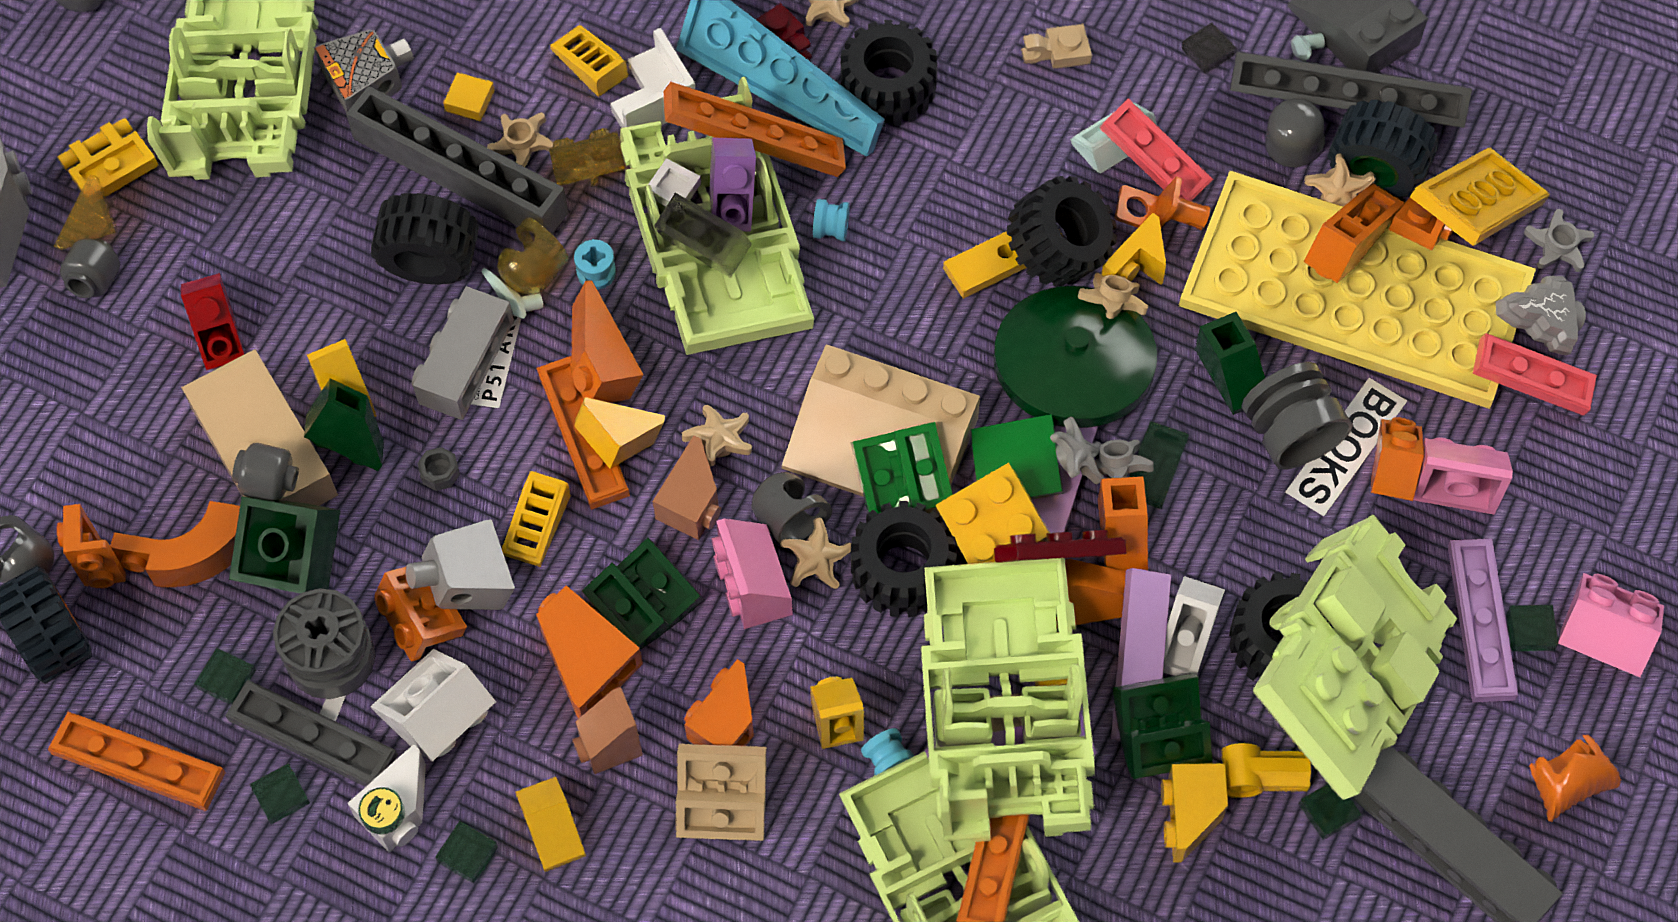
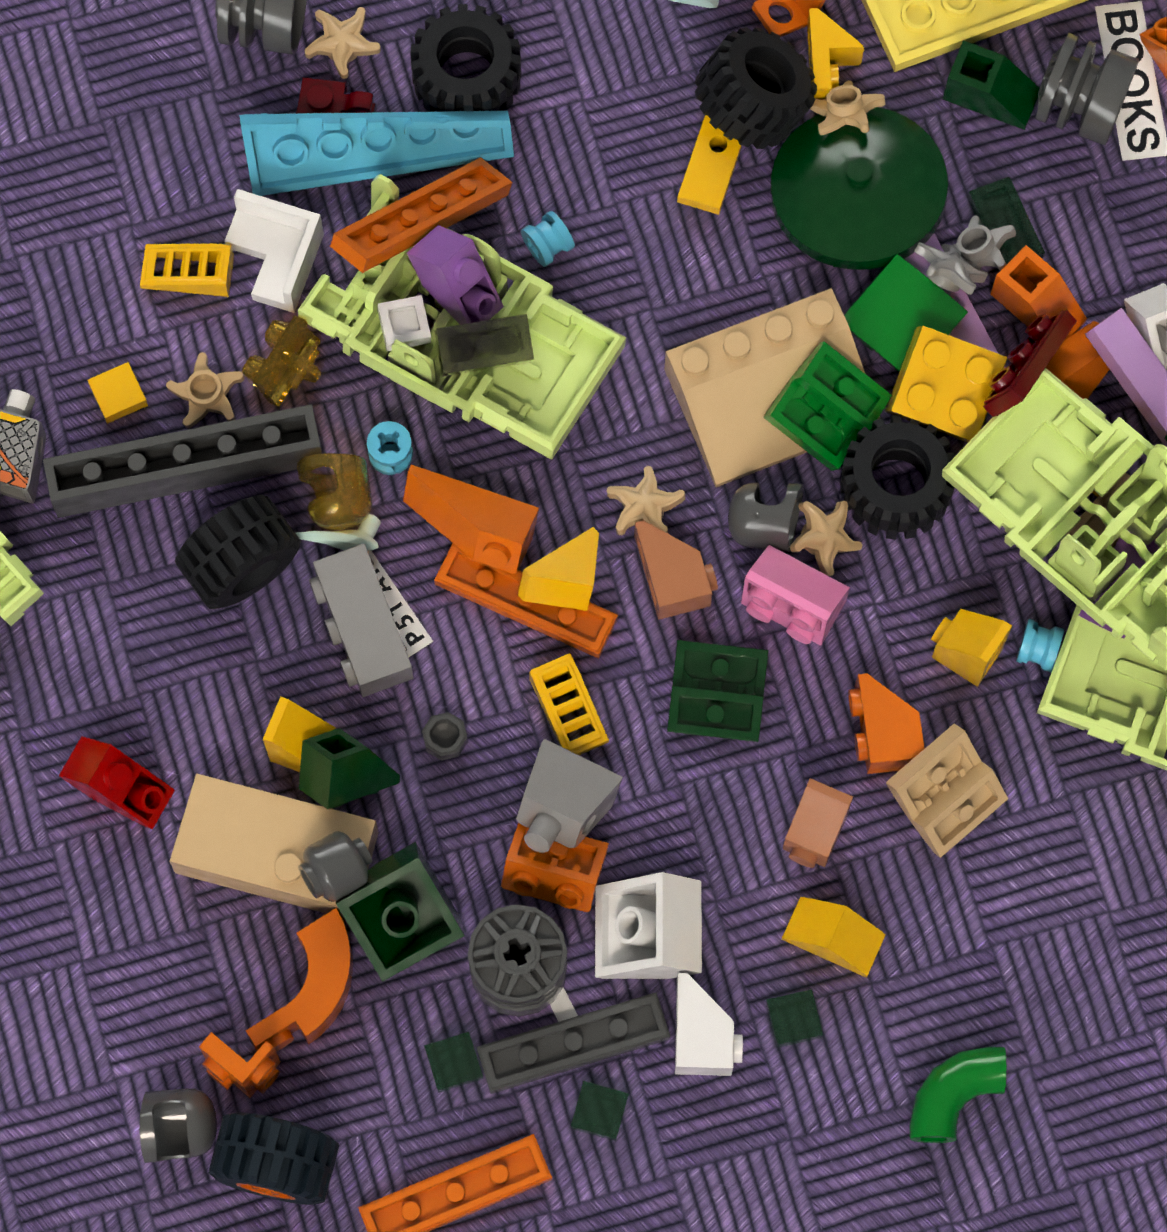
camera: 45 degrees left, 10 degrees up
(381, 810) = (713, 1046): tile -> none
(585, 649) = (722, 776): orange slope -> none

